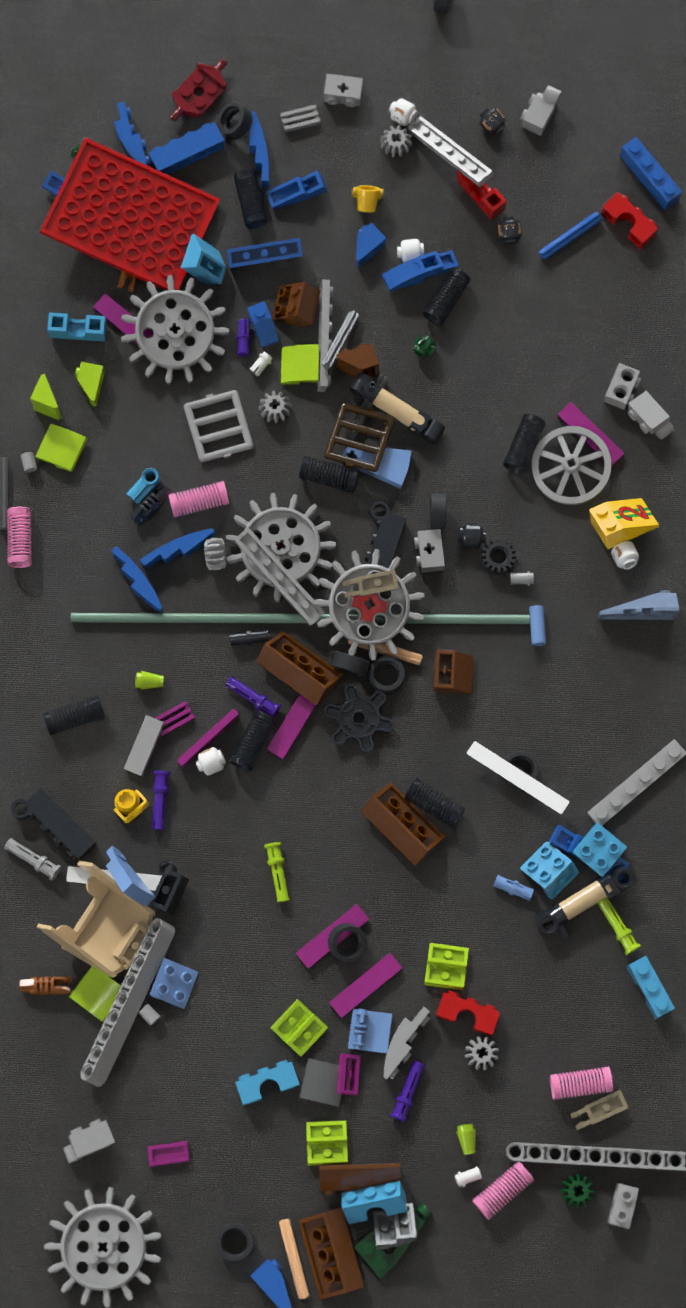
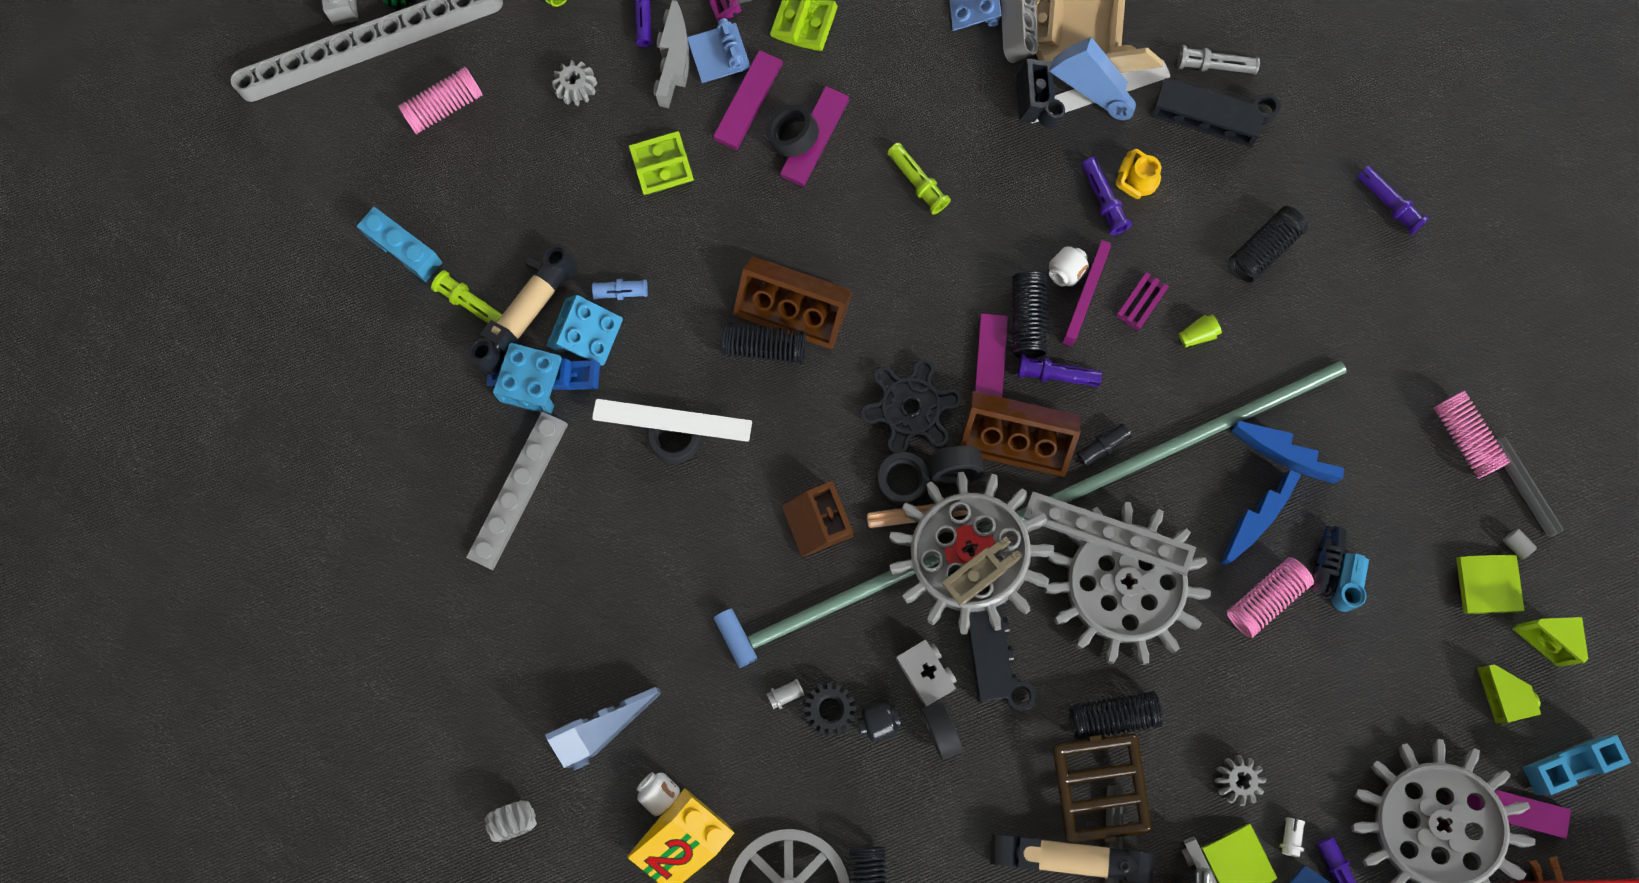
camera: 160 degrees right, 0 degrees up
(144, 745) = (1160, 250): light grey tile -> none
(215, 553) = (1207, 530): light grey gear -> none
(237, 411) = (1286, 751): light grey bar -> none
(392, 467) = (1035, 771): medium blue piece -> none
(452, 1005) = (631, 120): red arch -> none
(601, 1109) = (407, 84): dark tan hinge -> none

